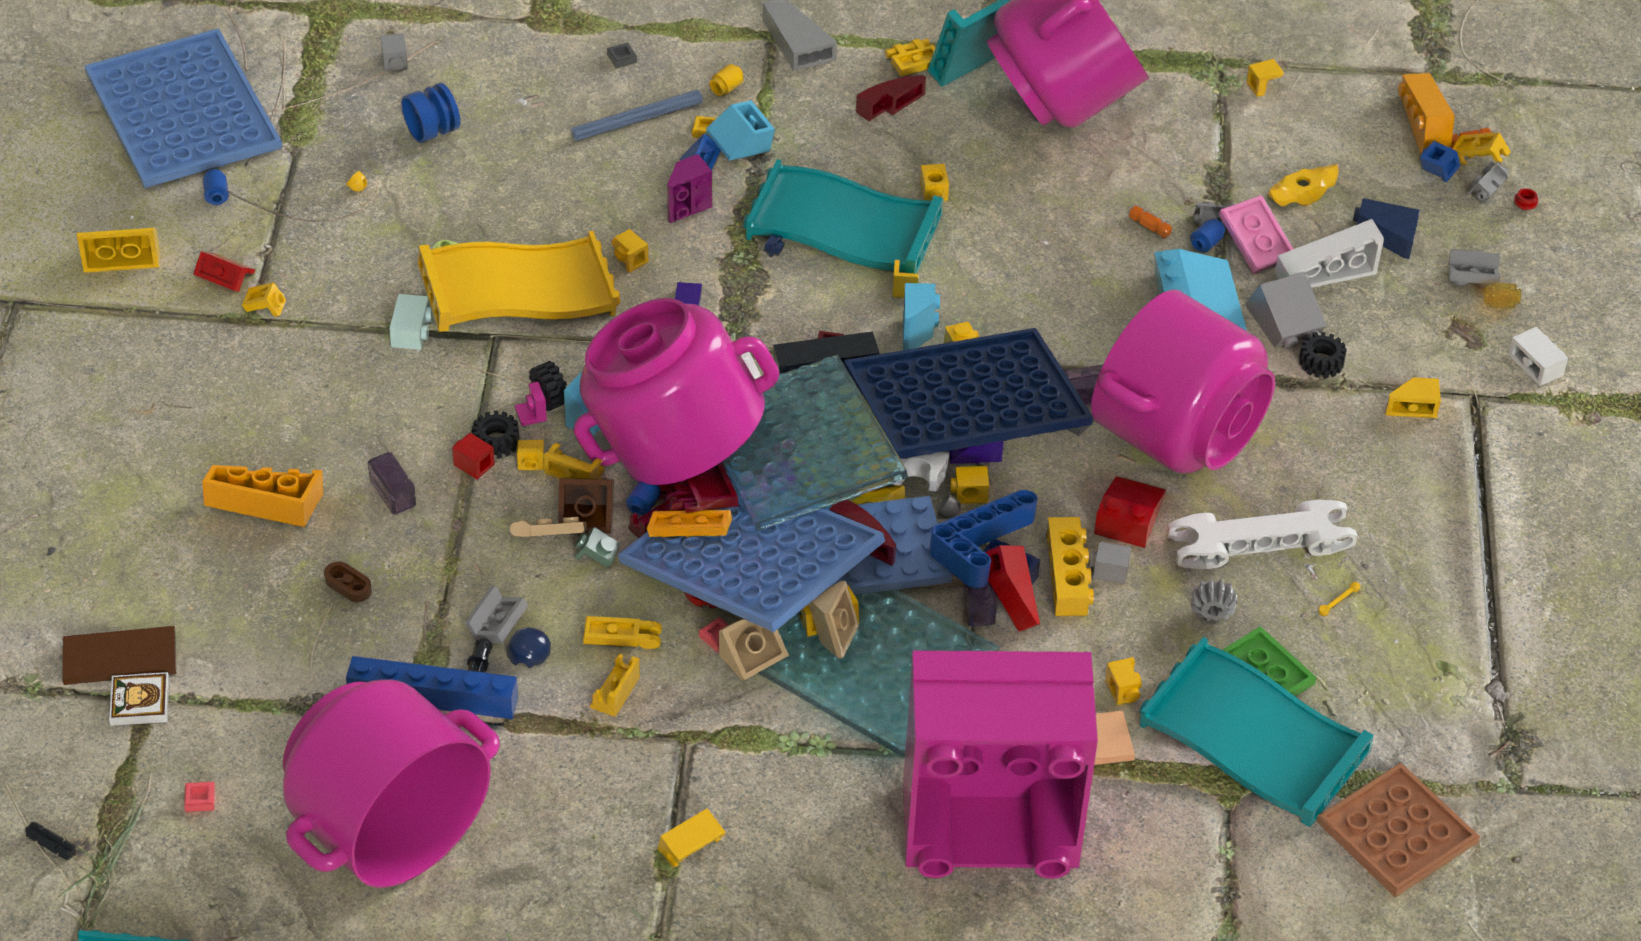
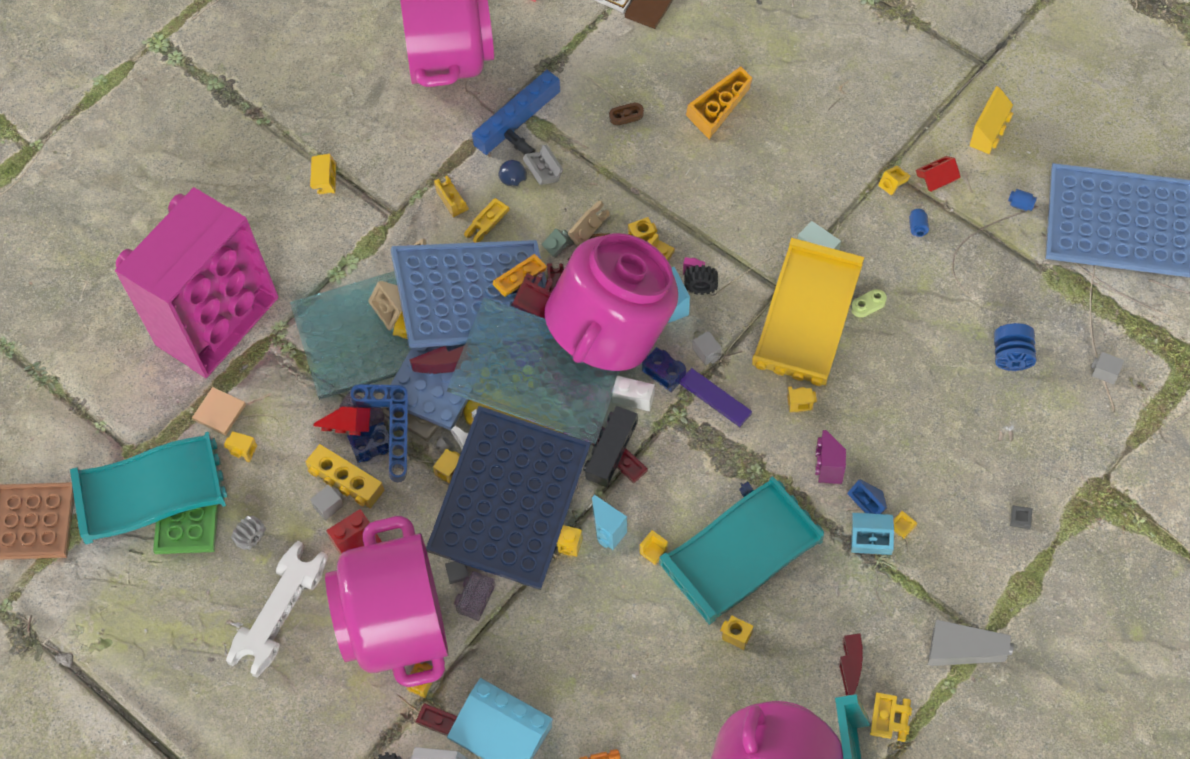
camera: 130 degrees right, 15 degrees up
(313, 254) = (918, 222): none -> blue brick
(357, 182) = (979, 280): yellow hinge -> none
(391, 483) = (683, 166): clear purple brick -> none
(473, 456) = (677, 217): red brick -> none
(501, 424) = (687, 248): black tyre -> none
(520, 476) = (642, 225): none -> yellow brick
(636, 115) = (943, 487): sand blue axle -> none
(726, 80) = (943, 564): yellow brick -> none
(1324, 609) = (199, 604): yellow hinge -> none

